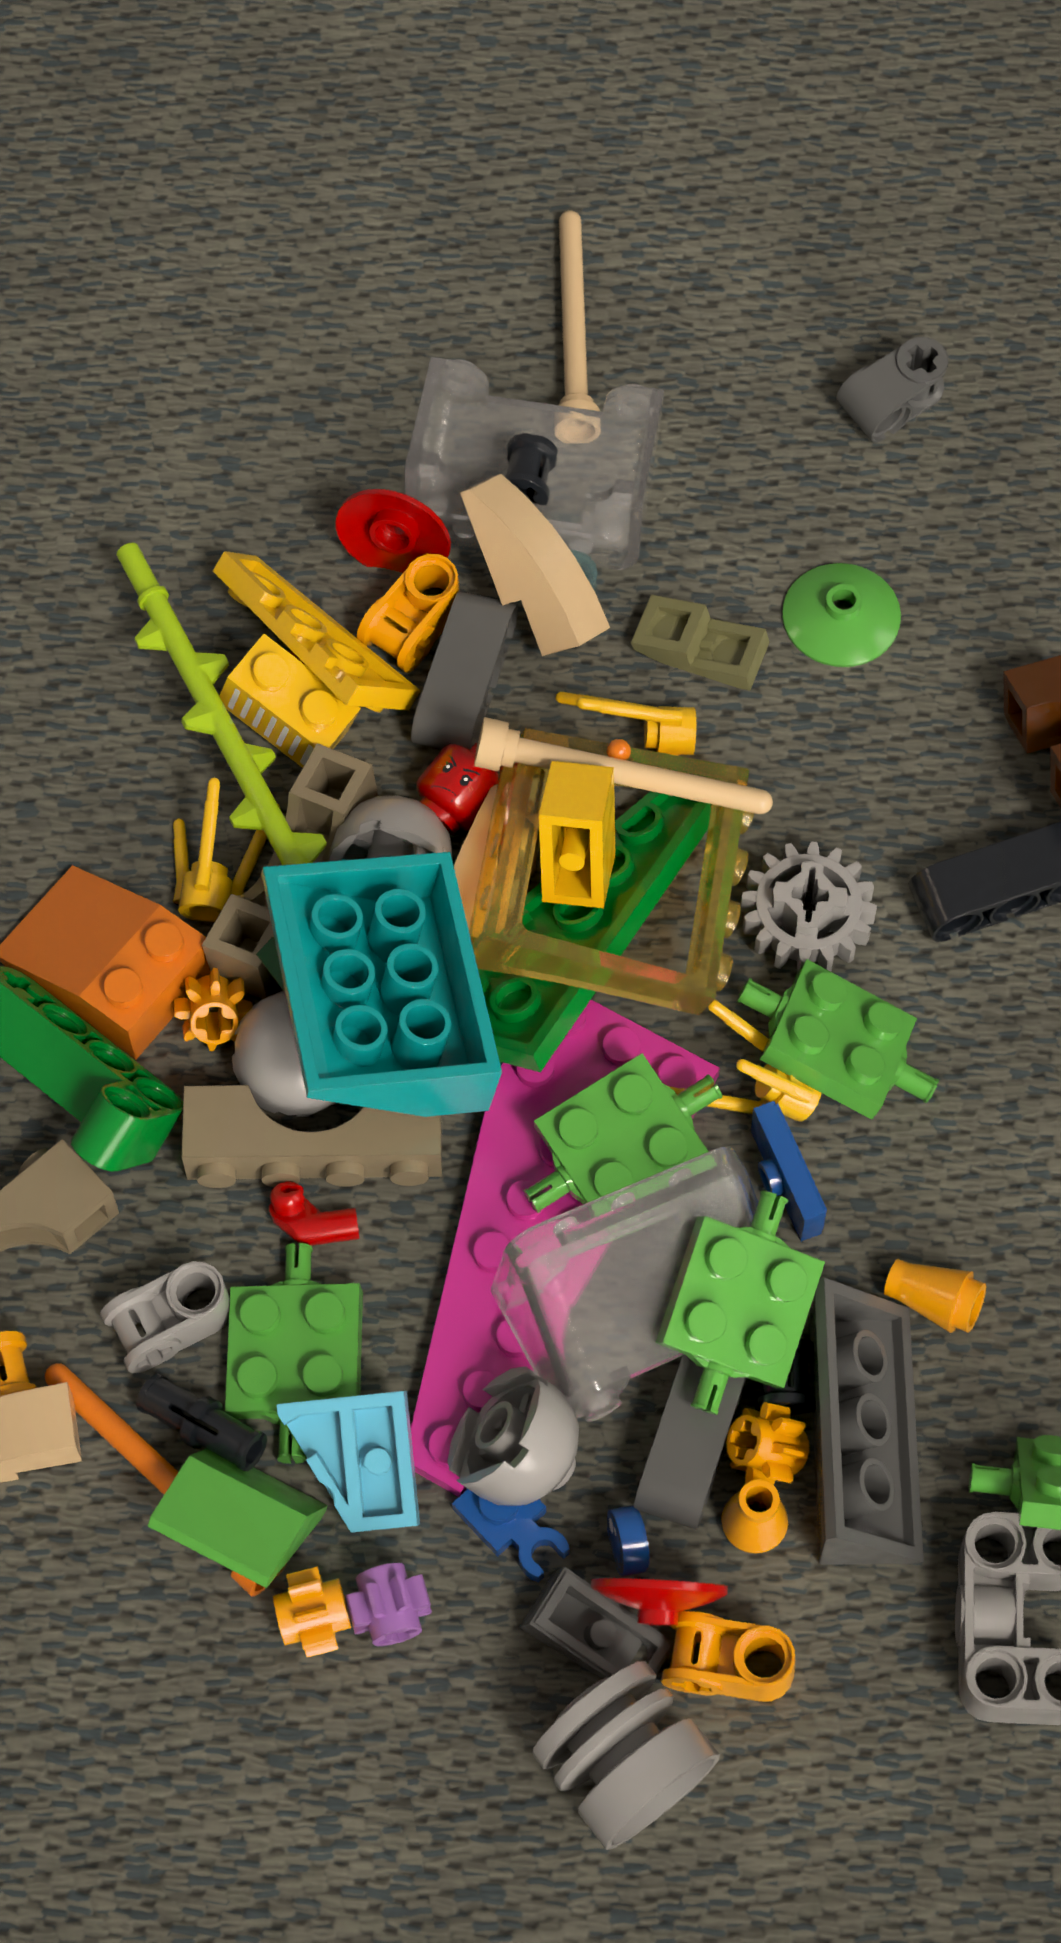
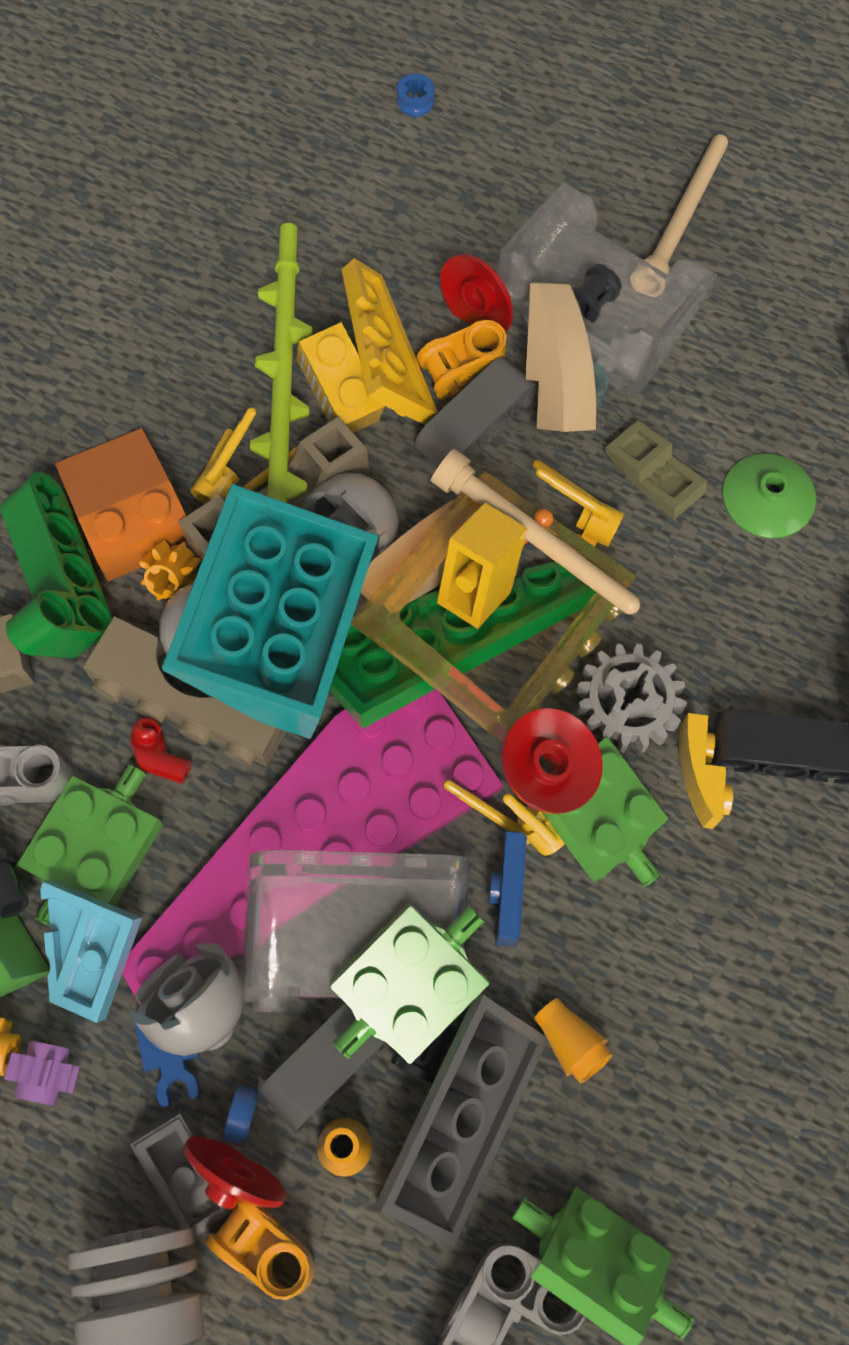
camera: 25 degrees right, 5 degrees up
(176, 333) = (415, 83): none -> blue bush
(455, 787) = (418, 495): red head -> none
(619, 1133) = (397, 805): bright green plate -> none
(768, 1444) = (381, 1096): light orange gear -> none
(779, 989) = (567, 747): none -> red dish
(931, 959) = (703, 782): none -> yellow slope

